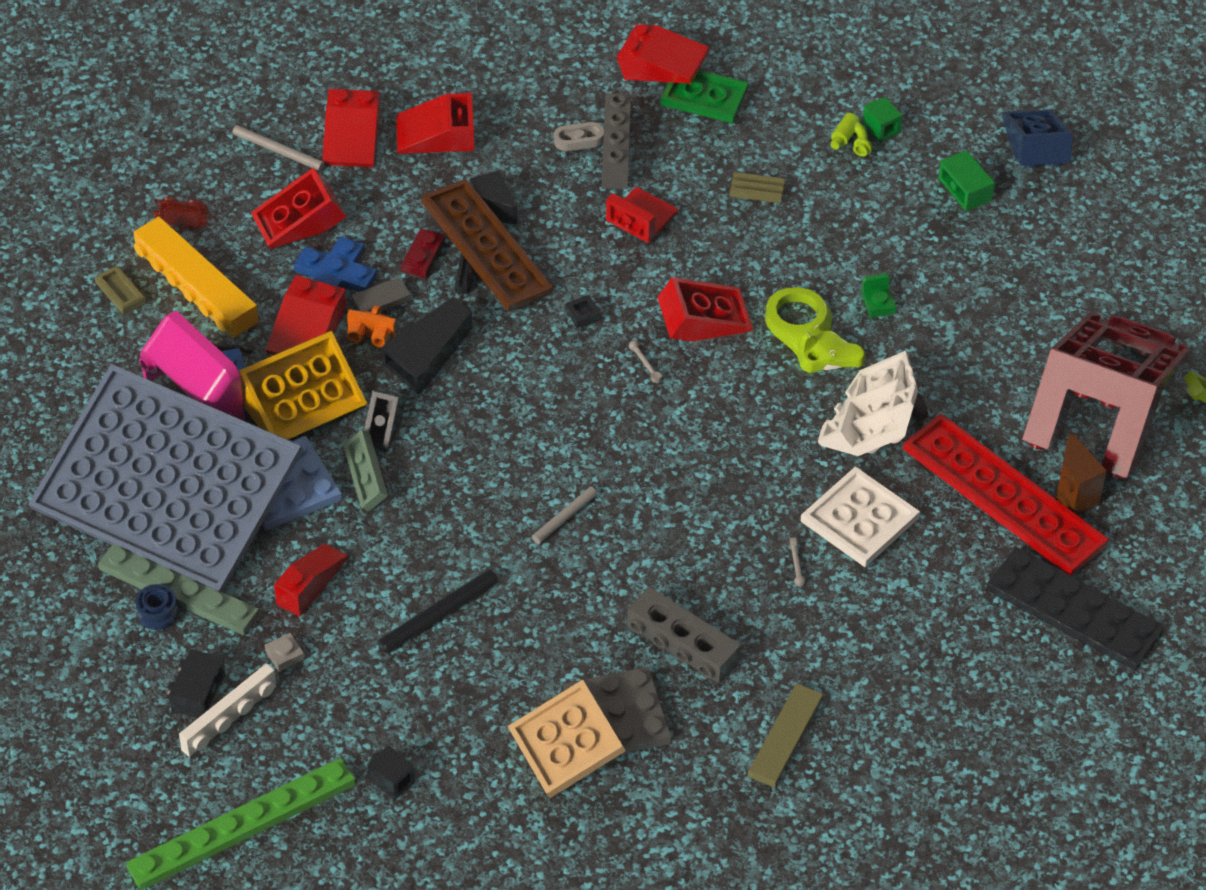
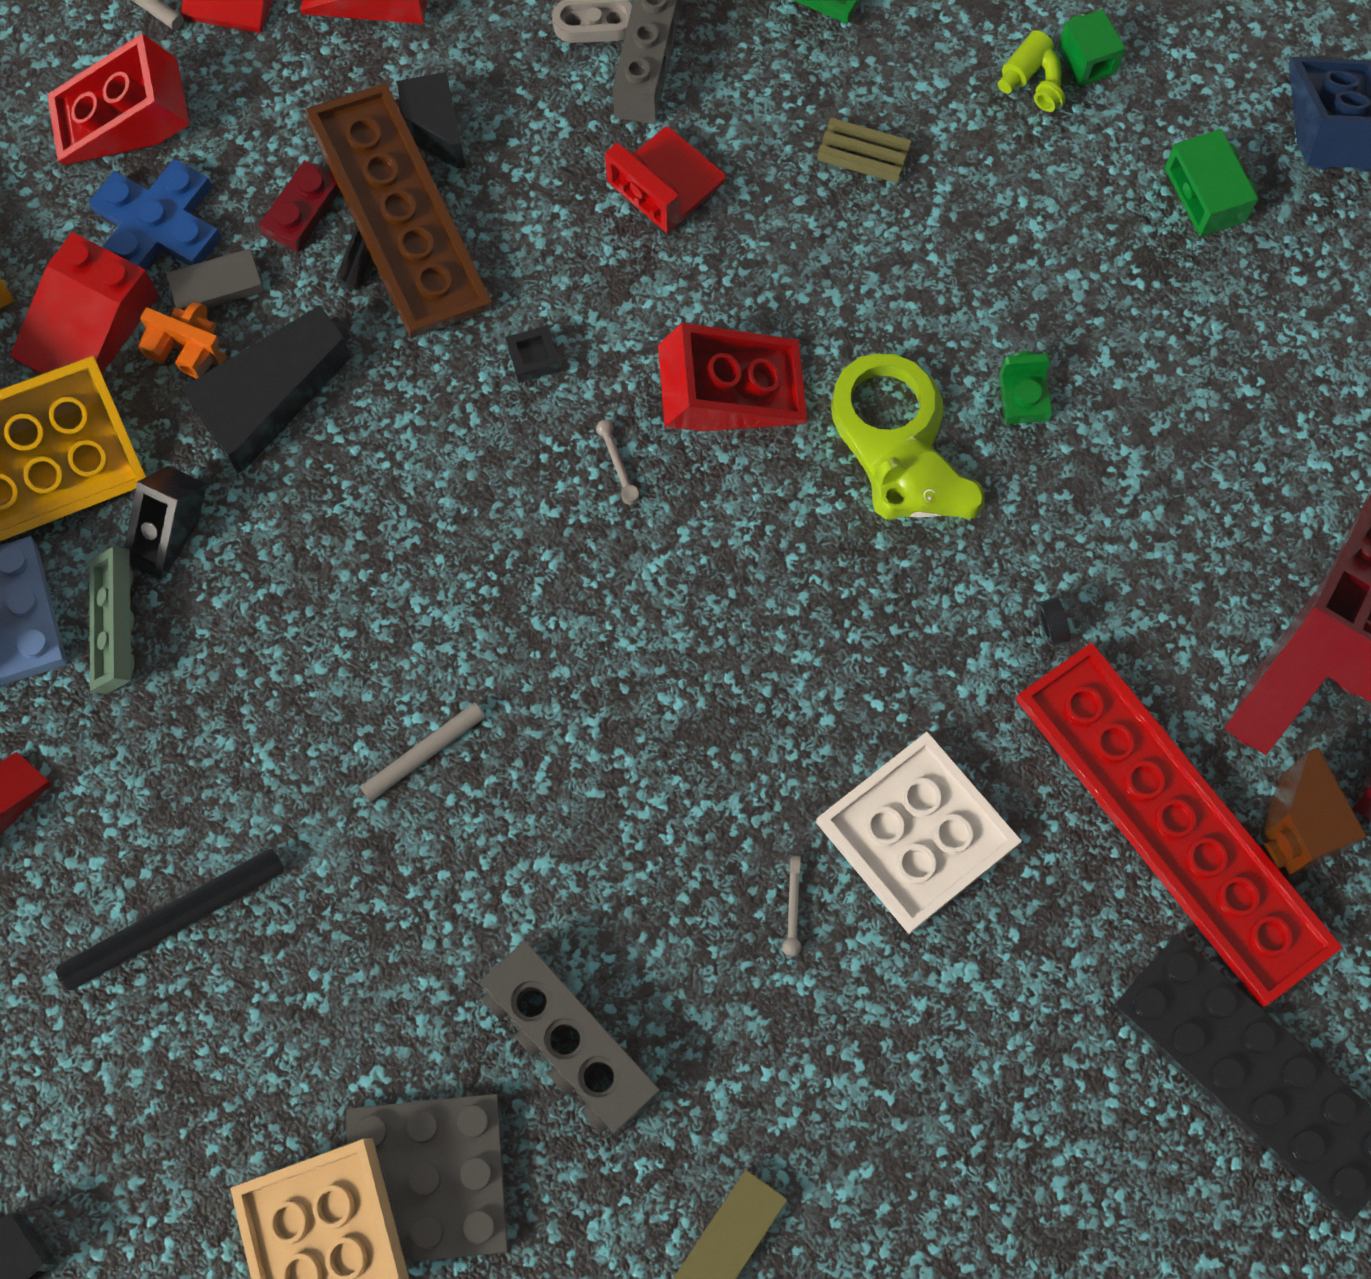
camera: 10 degrees right, 20 degrees up
(875, 408) = (983, 622): white wedge -> none

